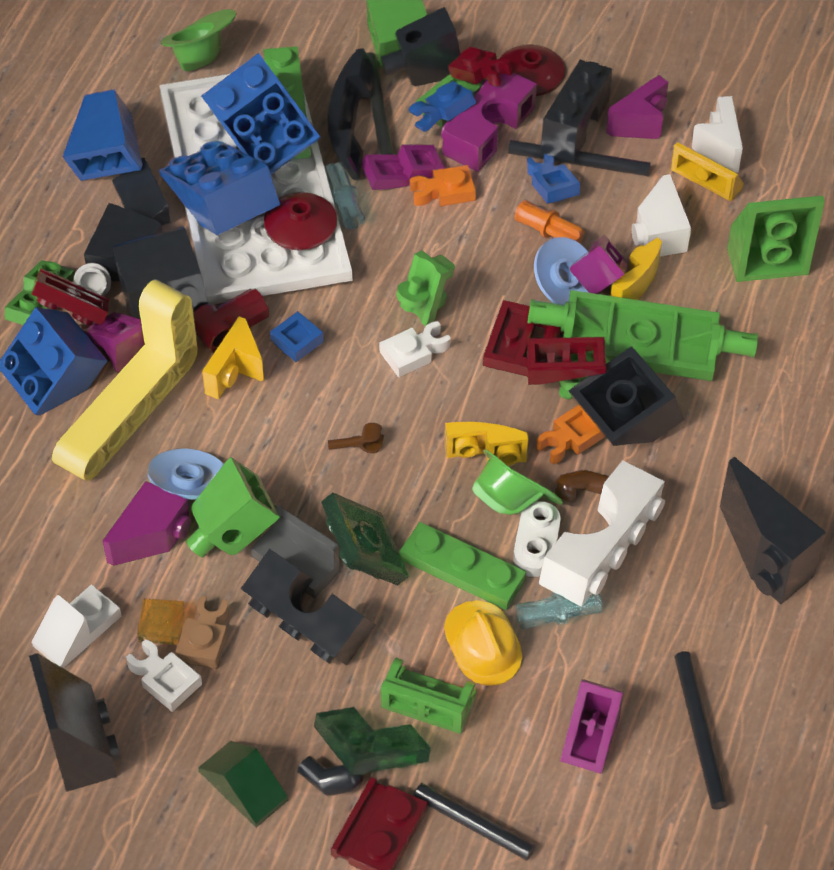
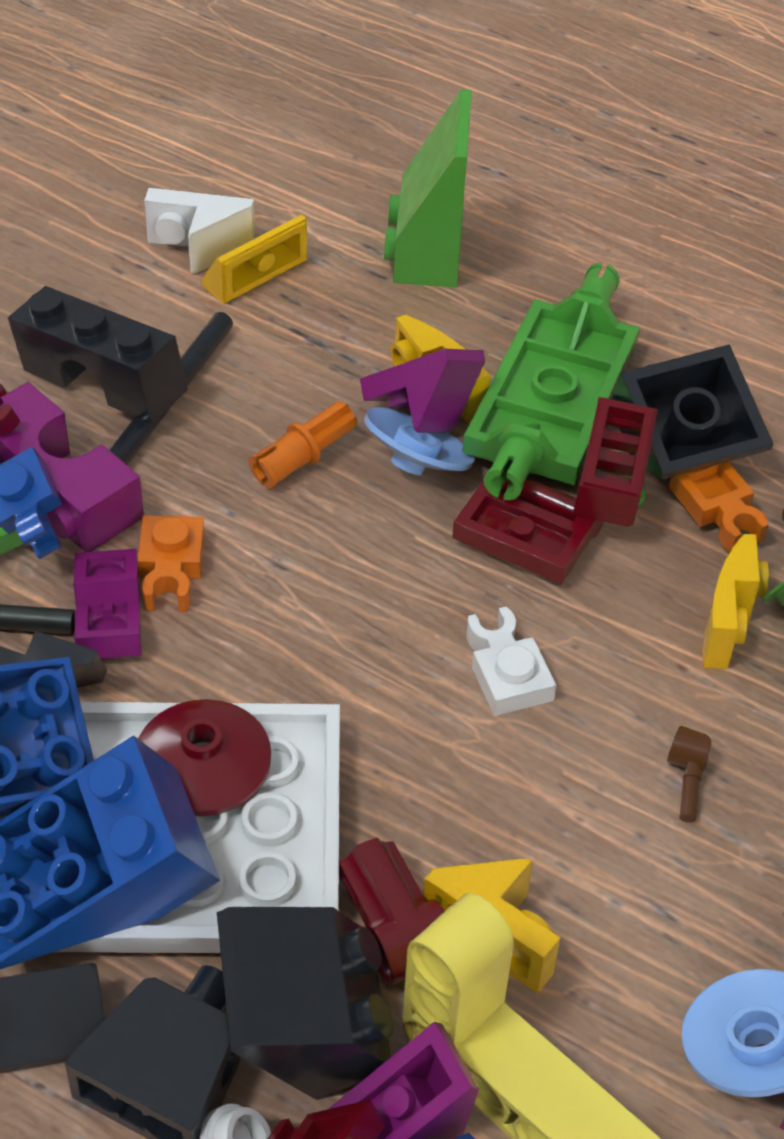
camera: 80 degrees left, 5 degrees down
(296, 336) = (457, 816): blue plate -> none
(344, 195) = (146, 686): clear light blue axle -> none
(425, 286) = (419, 601): bright green hips -> none
(552, 181) = (215, 422): blue plate -> none
(640, 111) = (123, 292): magenta slope -> none
(662, 217) = (337, 319): white slope -> none

